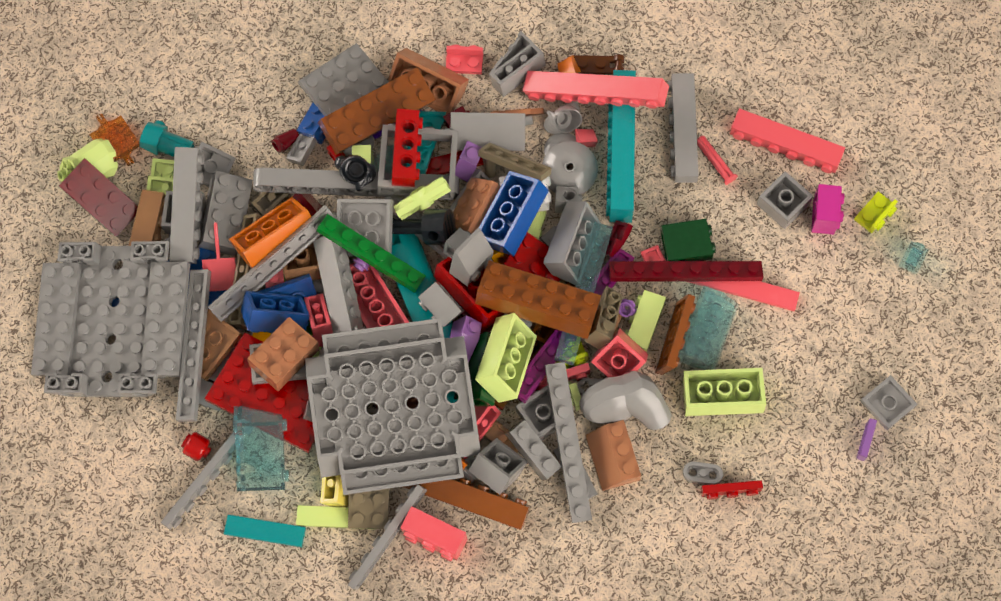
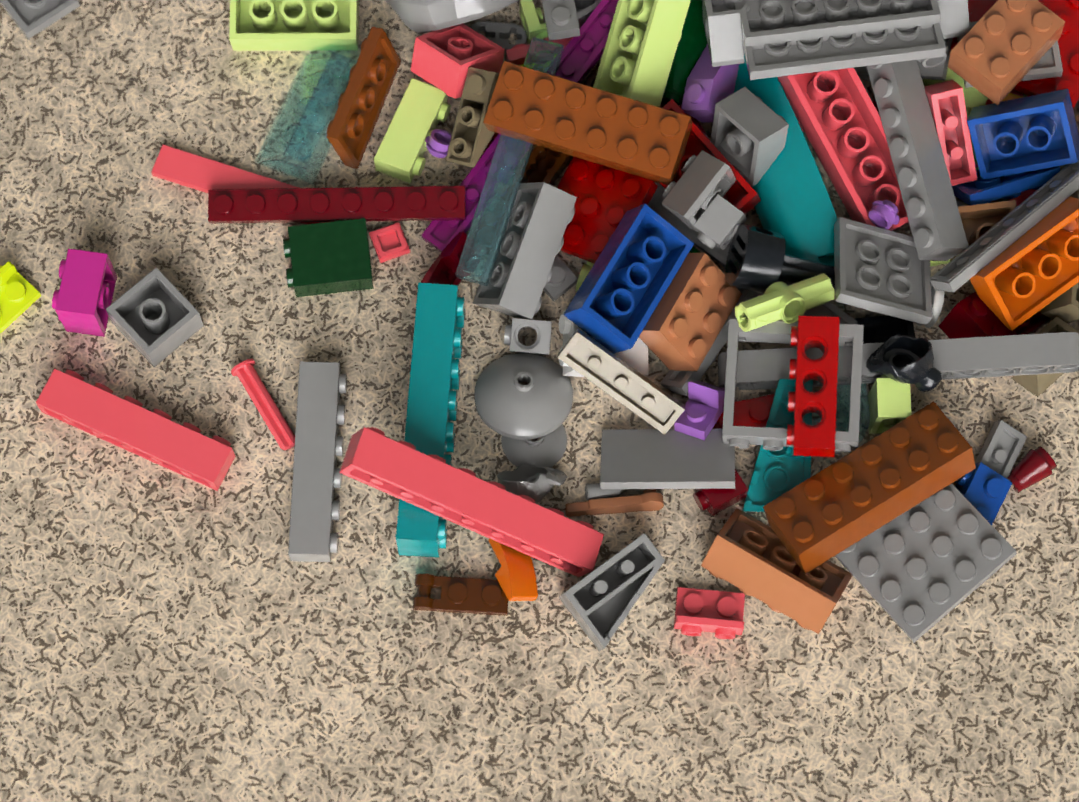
camera: 175 degrees right, 0 degrees up
(370, 253) = (870, 213): green plate -> none
(586, 137) = (491, 453): coral slope -> none

